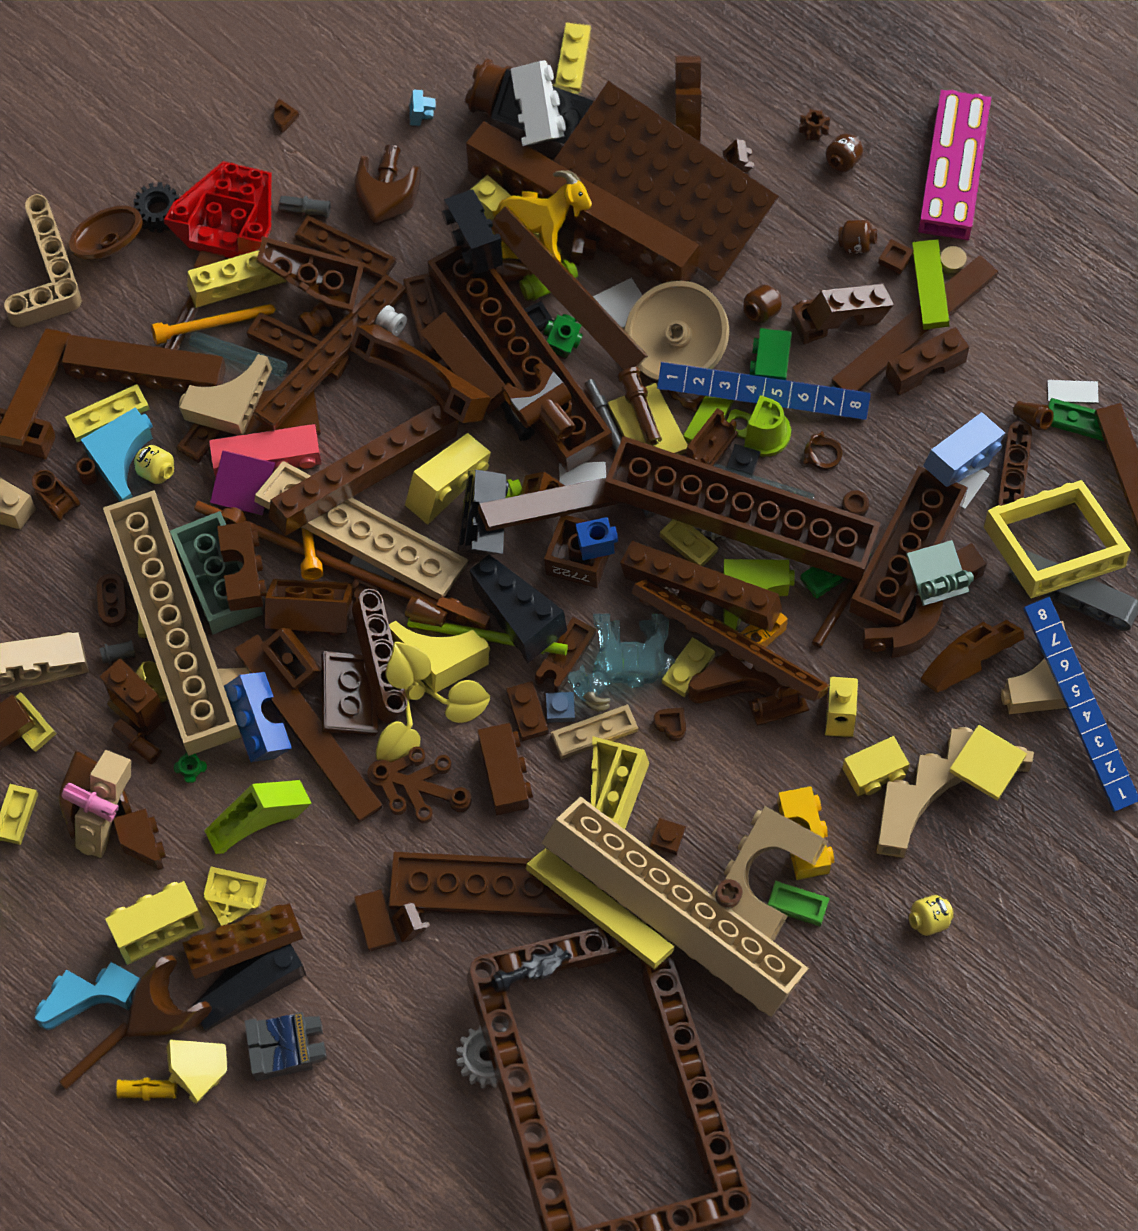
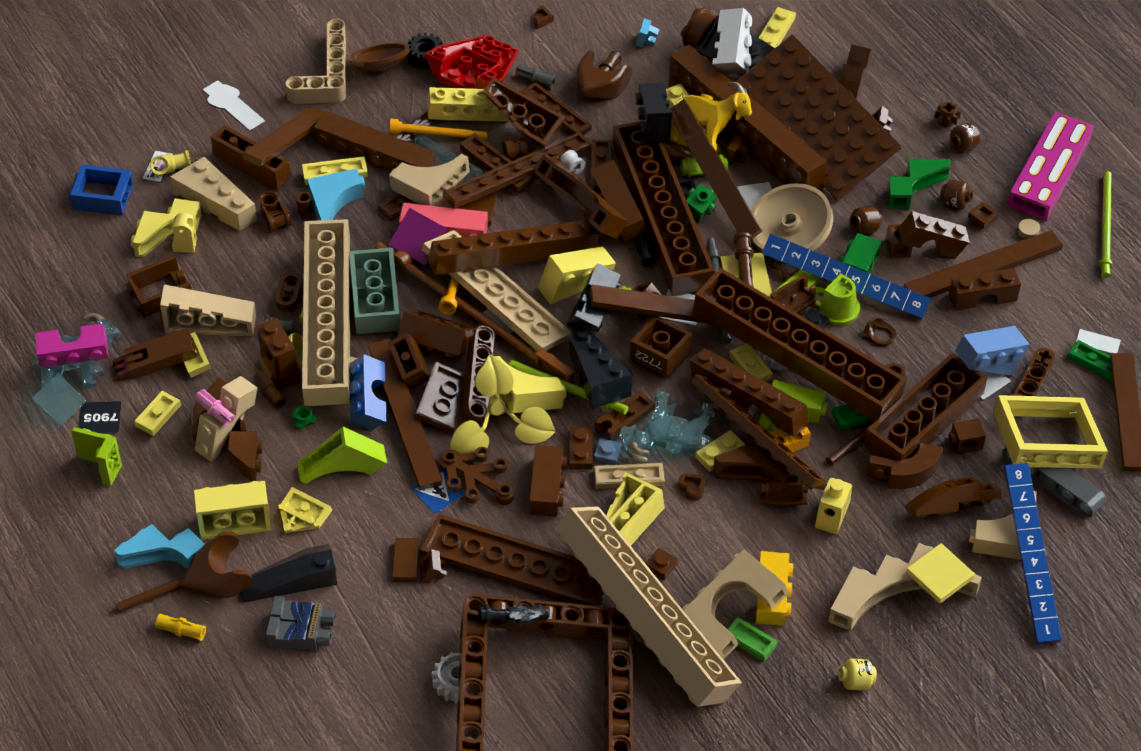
camera: 15 degrees right, 15 degrees down
(154, 464) = (356, 211): light yellow head -> none
(196, 1066) = (225, 620): light yellow slope -> none
(242, 940) = (302, 541): reddish brown plate -> none
(244, 587) = (391, 298): reddish brown arch -> none
(383, 824) = (439, 496): none -> blue sticker
(424, 612) = (523, 356): reddish brown cone -> none
(542, 403) = (666, 235): reddish brown connector -> none
(596, 548) = (675, 334): blue brick -> none
(600, 908) = (586, 591): light yellow tile -> none
(724, 900) = (688, 609): reddish brown bush -> none
(806, 221) = (919, 176): none -> green arch
(876, 766) = (843, 554): light yellow brick -> none
(930, 284) = (1004, 239): lime tile -> none
(938, 573) = (943, 428): hinge -> none
(1036, 415) = (1061, 346): reddish brown cone -> none
(1053, 283) = (1105, 263): none -> lime bar

